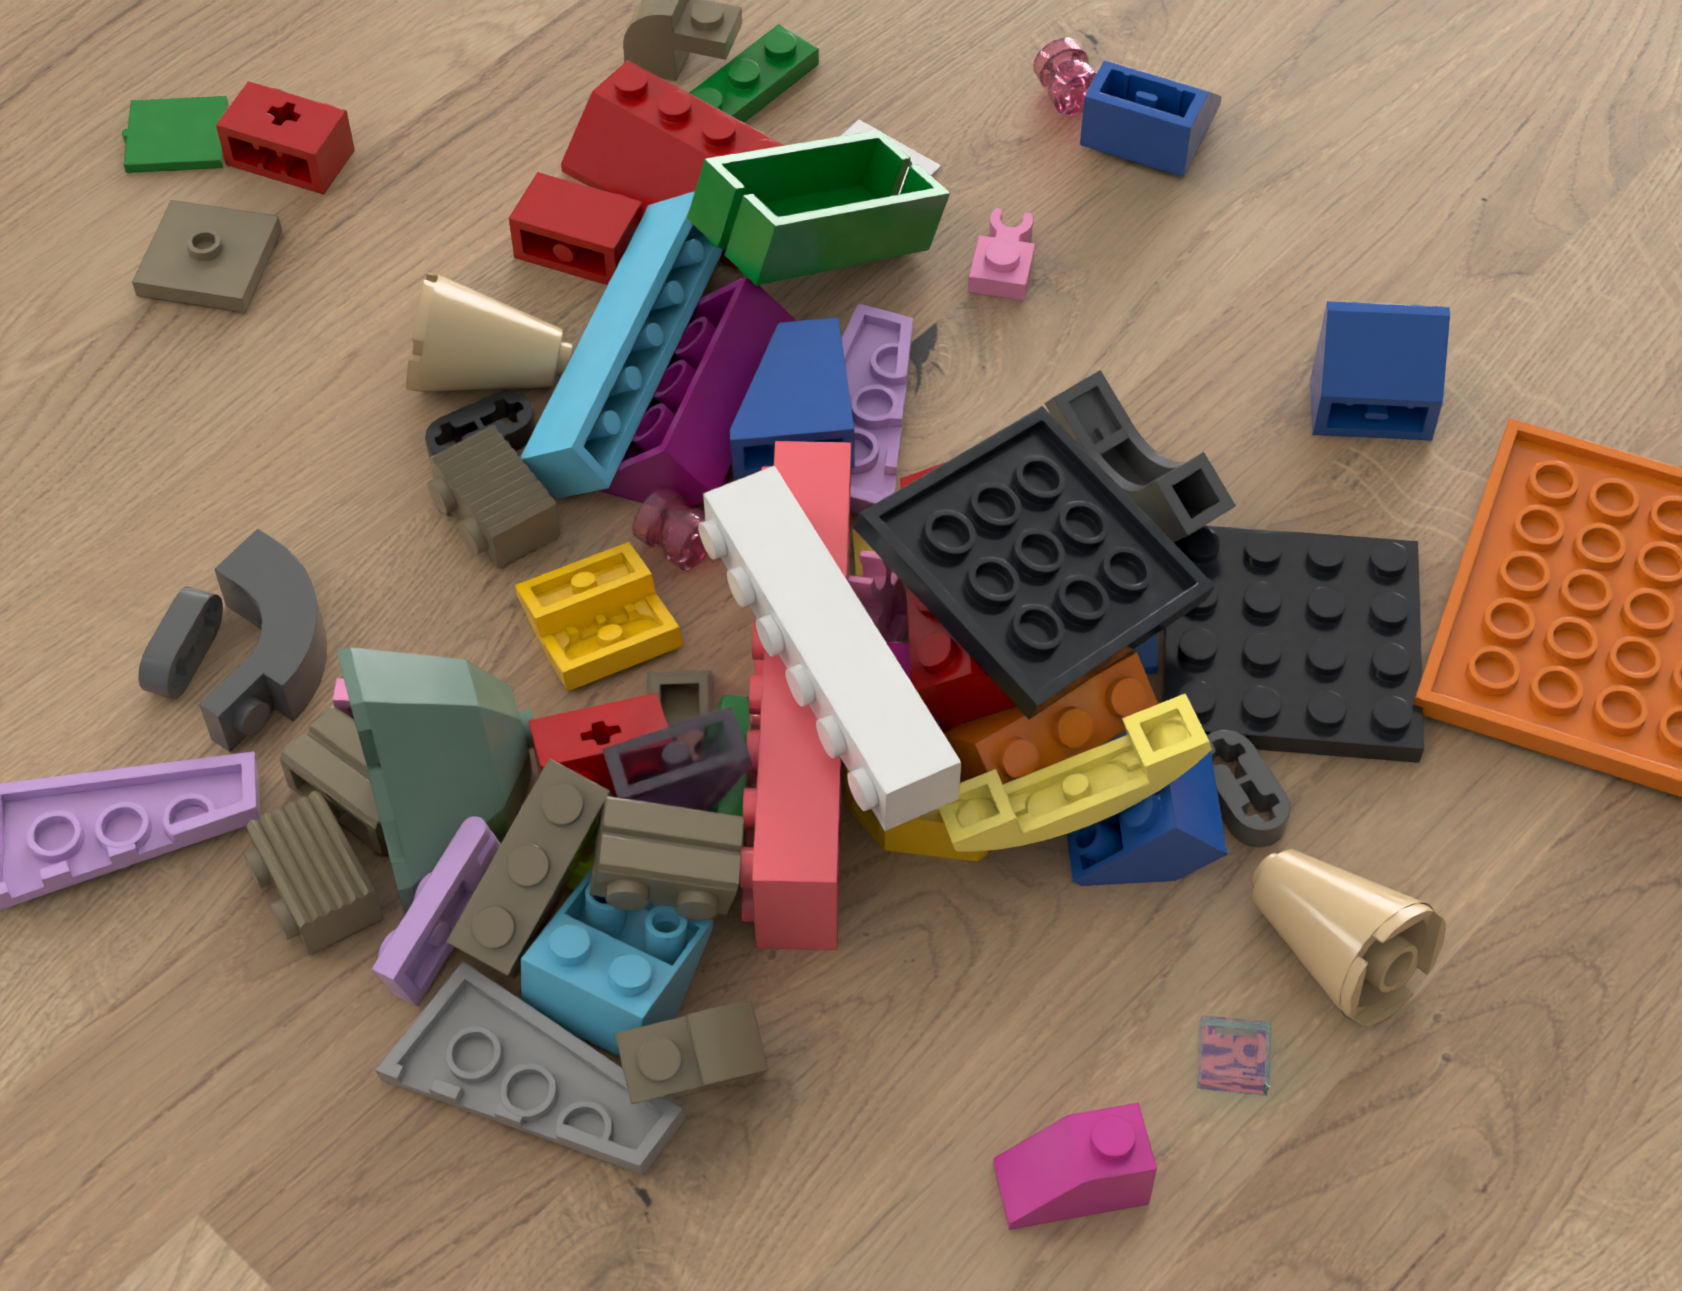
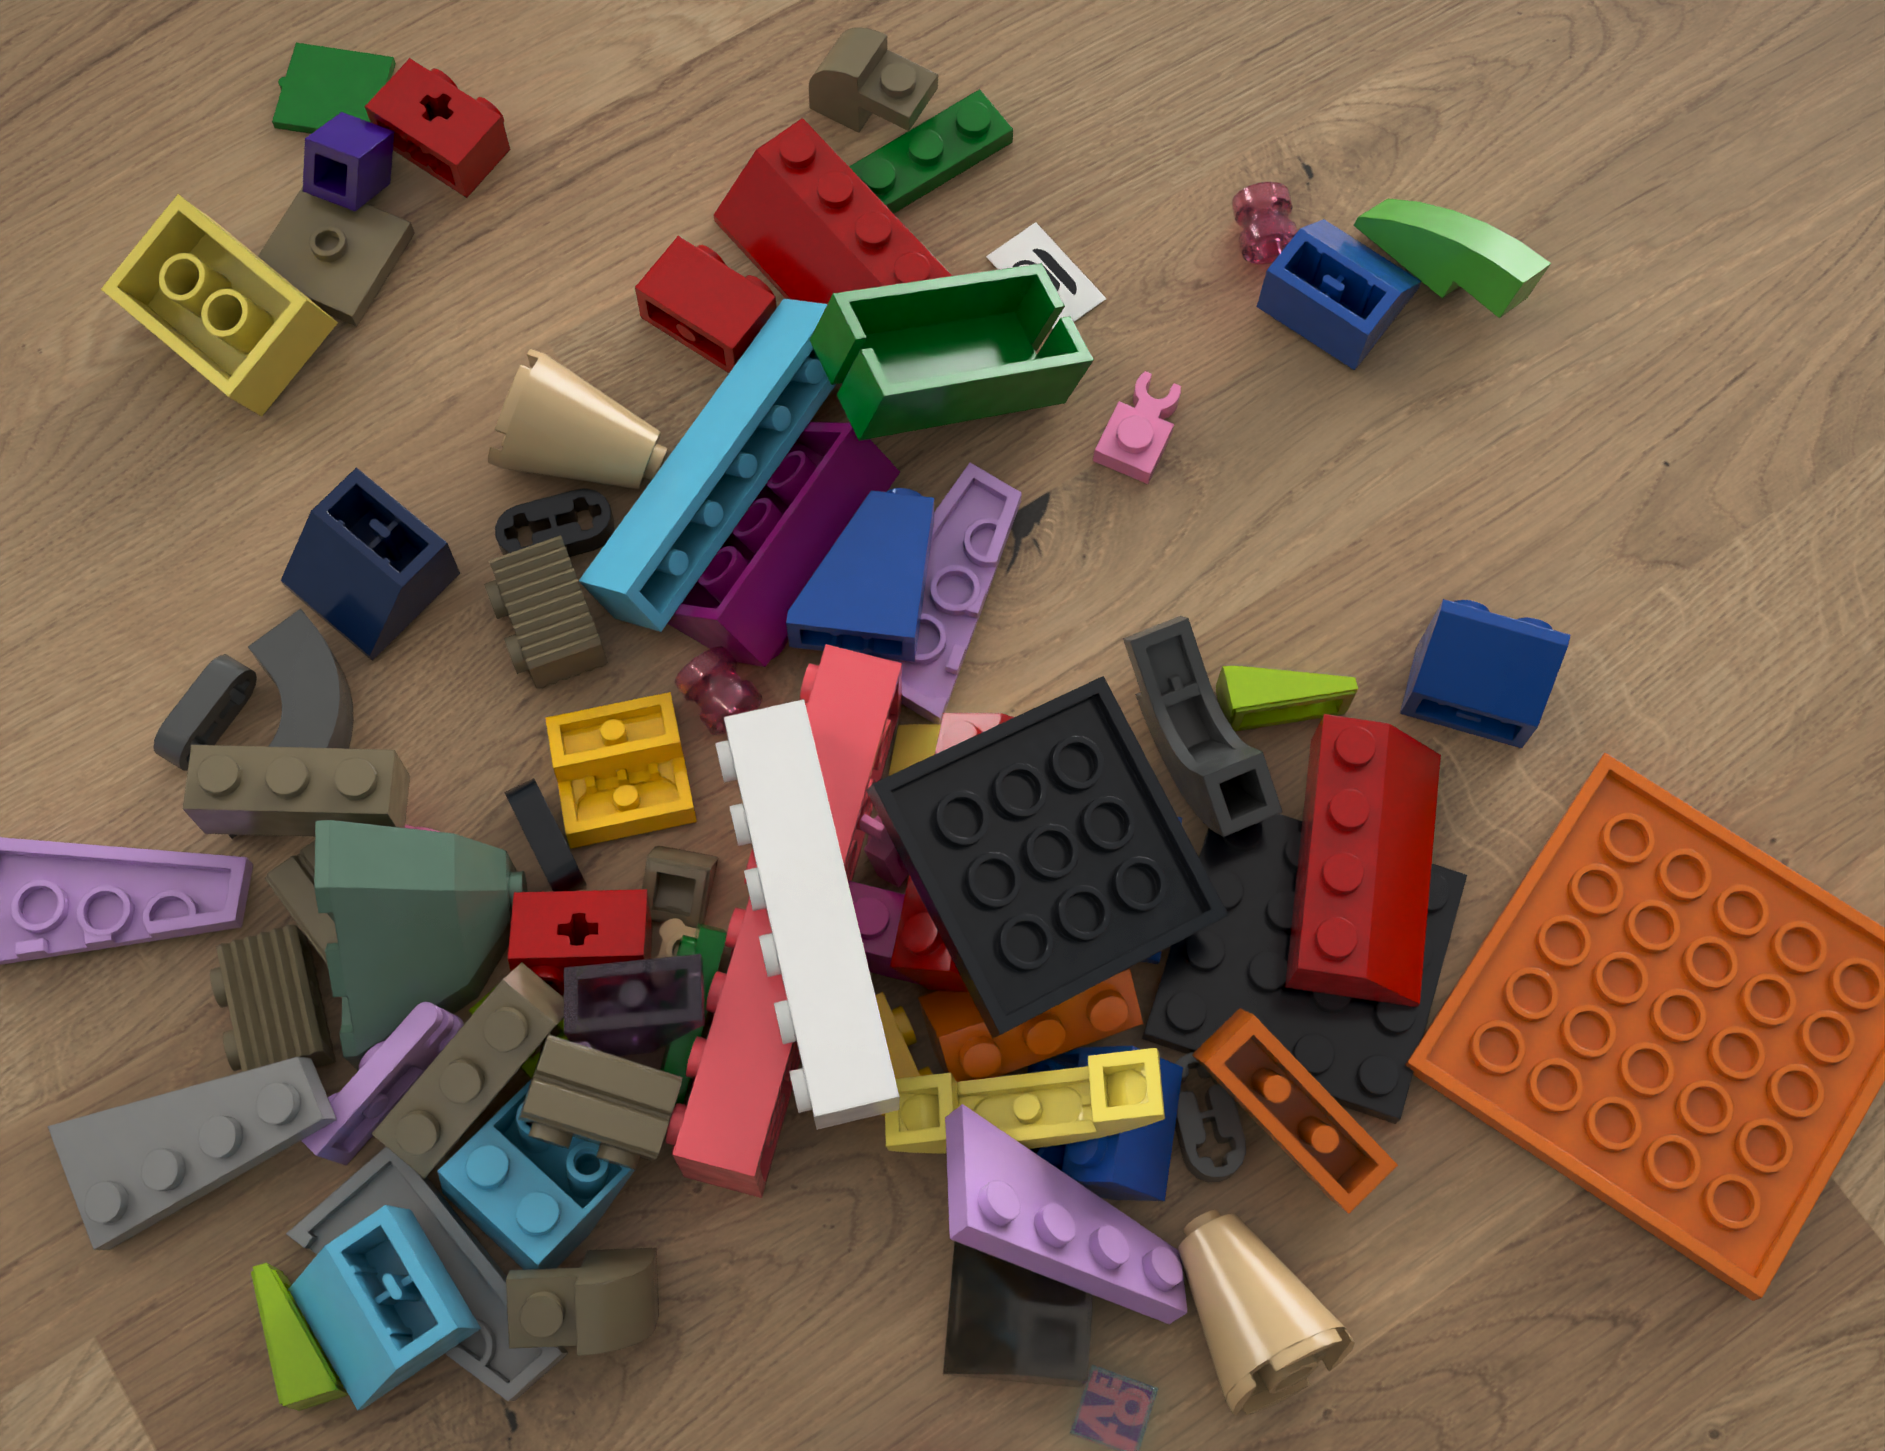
camera: 10 degrees right, 15 degrees up
(117, 302) = (219, 306): none -> light yellow brick
(208, 173) = (347, 161): none -> dark purple brick
(243, 1014) = (173, 1148): none -> light grey wing
(285, 662) = (292, 787): none -> dark tan brick
(313, 484) = (367, 564): none -> dark blue slope
(423, 1176) = (296, 1358): none -> lime slope
(492, 1093) = (381, 1304): none -> medium azure slope
(539, 675) = (545, 837): none -> black beam
(1120, 985) = (1014, 1323): none -> clear smoke slope
(1129, 876) = (1046, 1222): none -> lavender wing
(1207, 427) = (1275, 697): none -> lime slope
(1246, 66) = (1455, 252): none -> bright green slope
(1320, 538) = (1364, 863): none -> red slope
(1325, 746) = (1295, 1110): none -> orange brick

